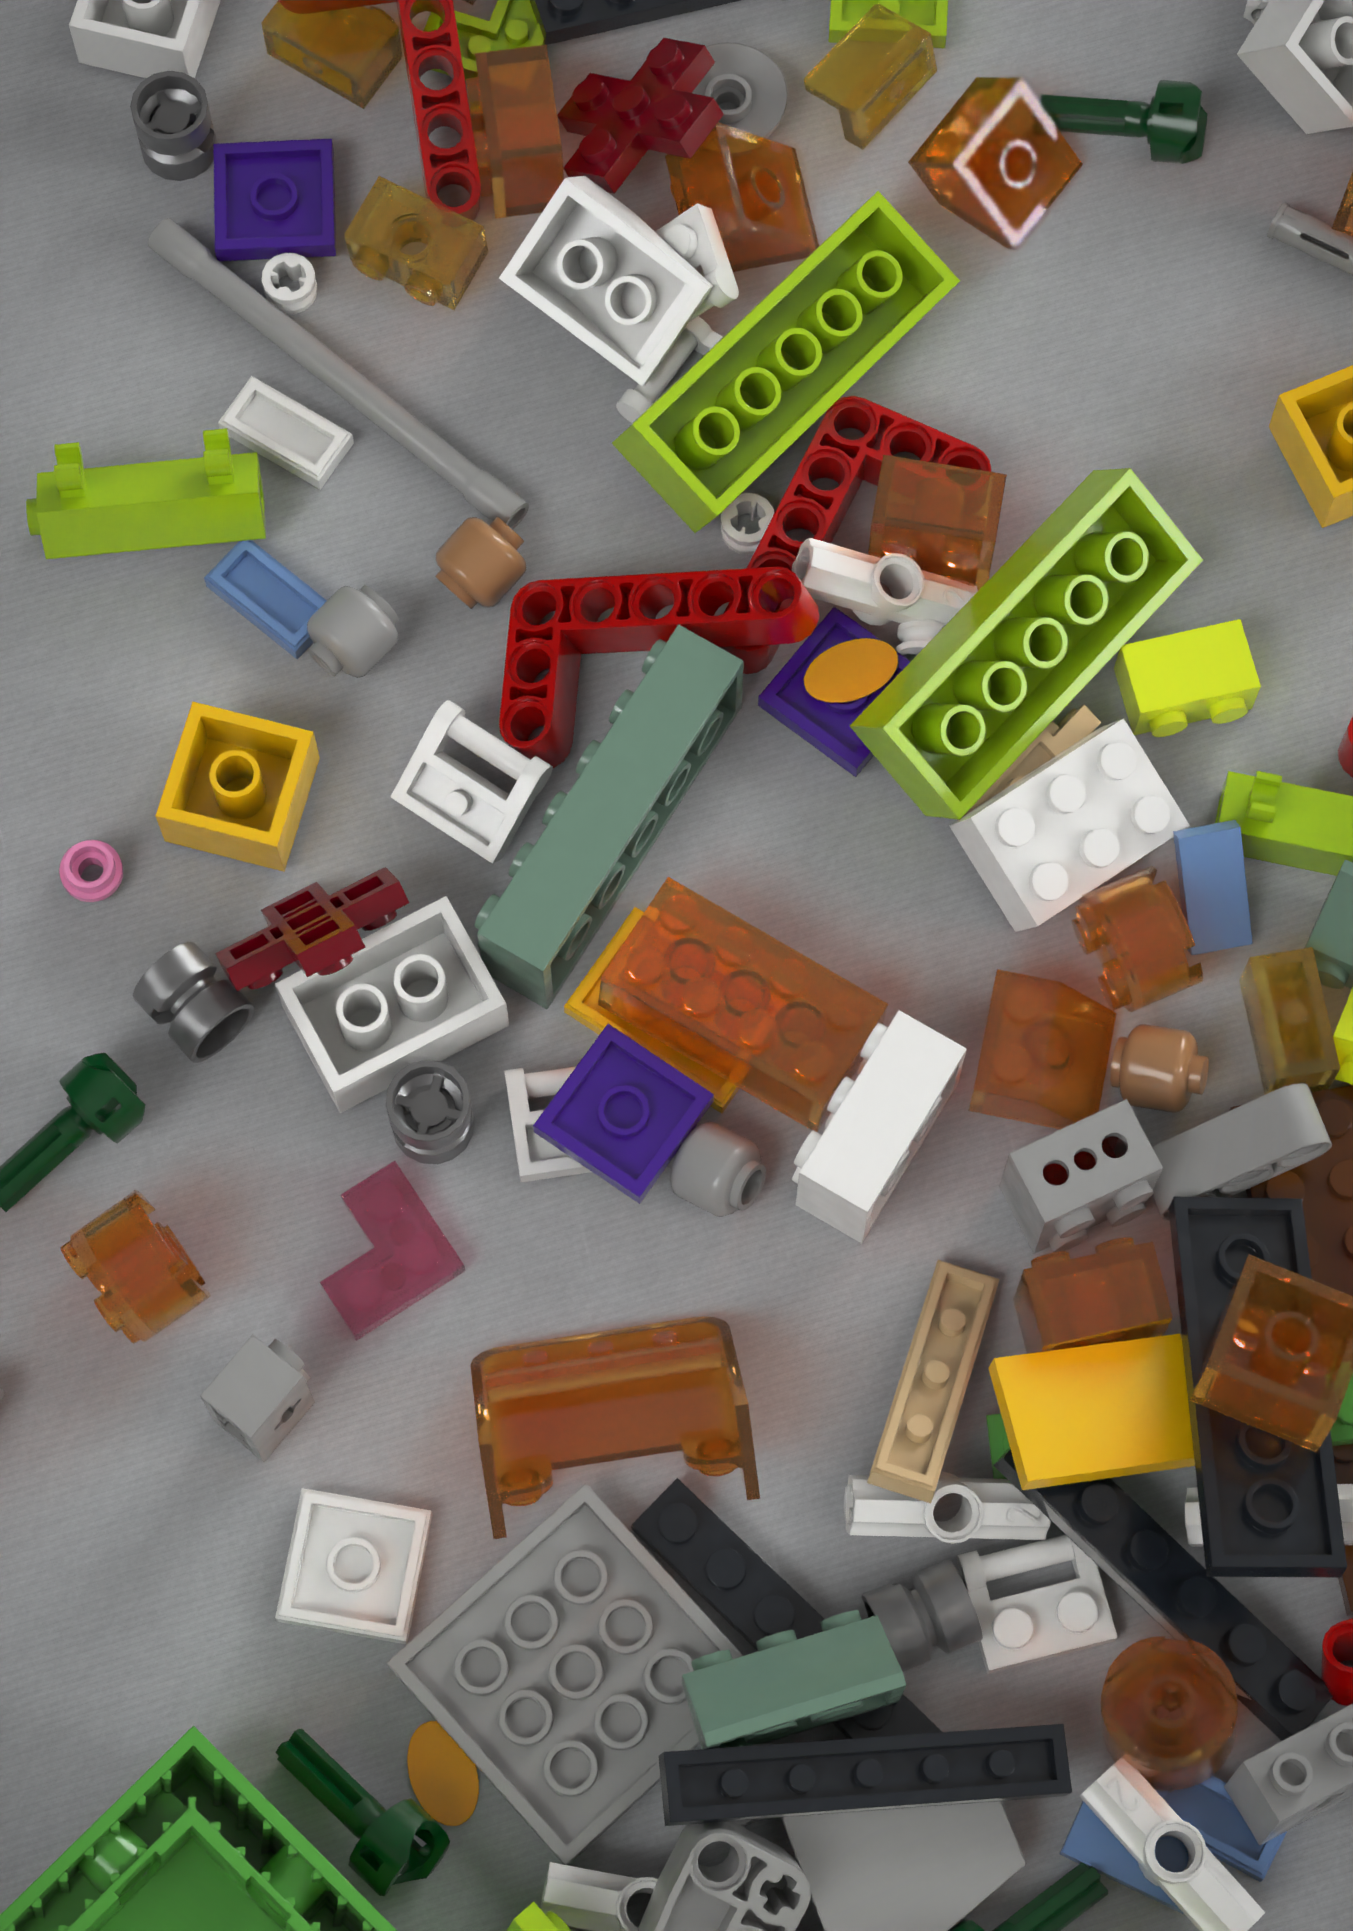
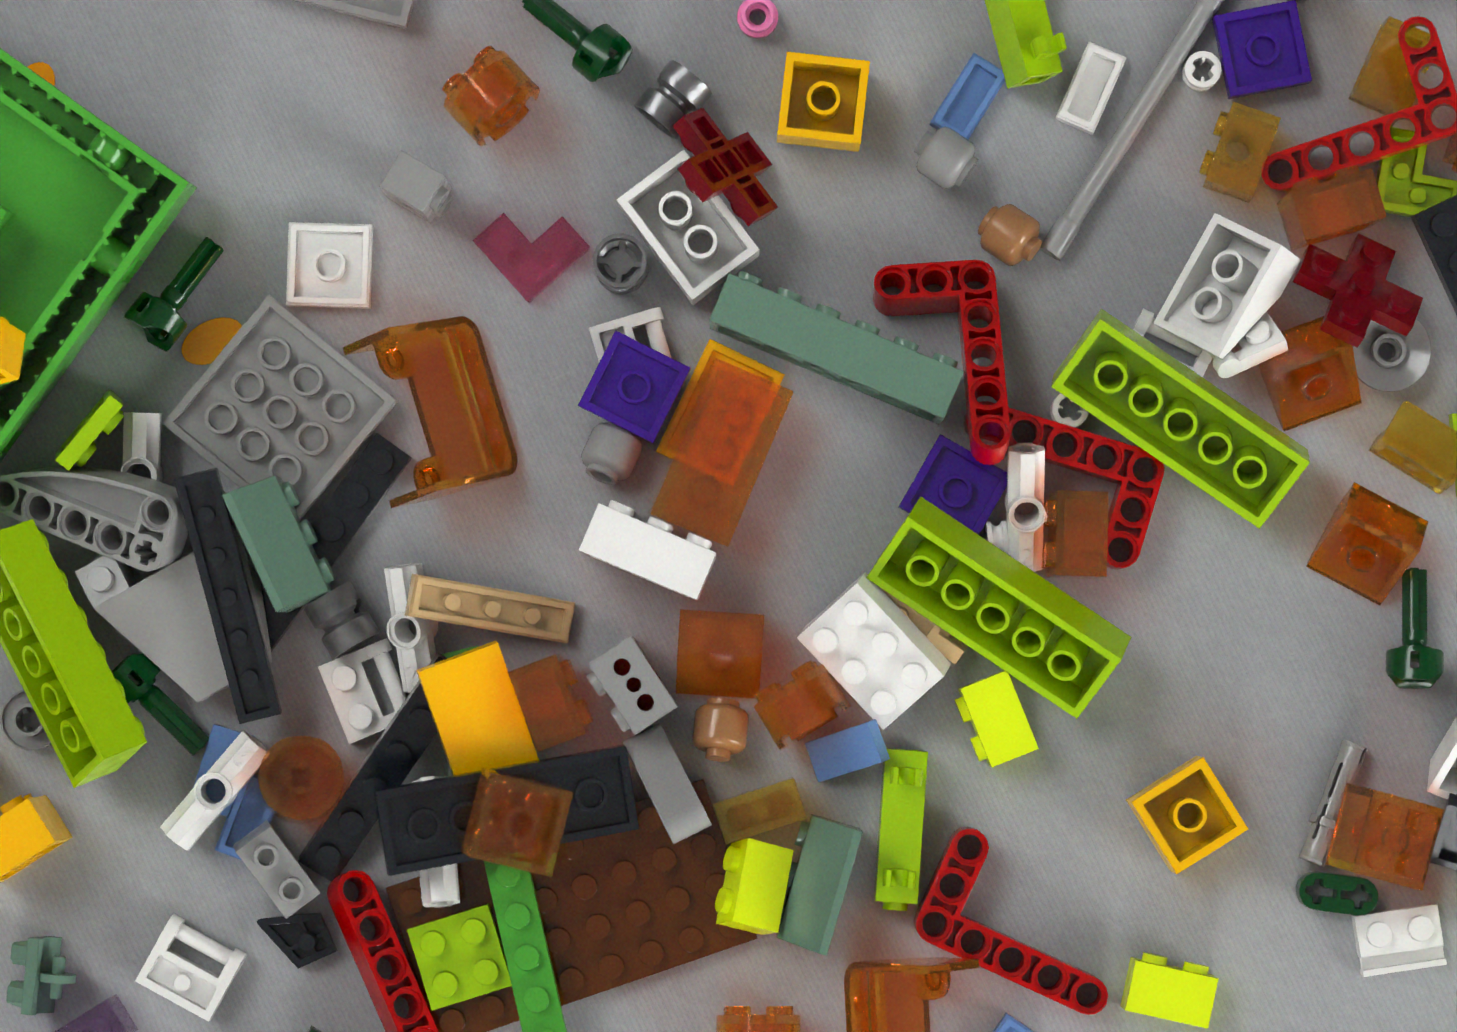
camera: 85 degrees right, 15 degrees up
(461, 799) = (840, 247): white plate -> none
(851, 670) = (967, 493): light orange sticker -> none

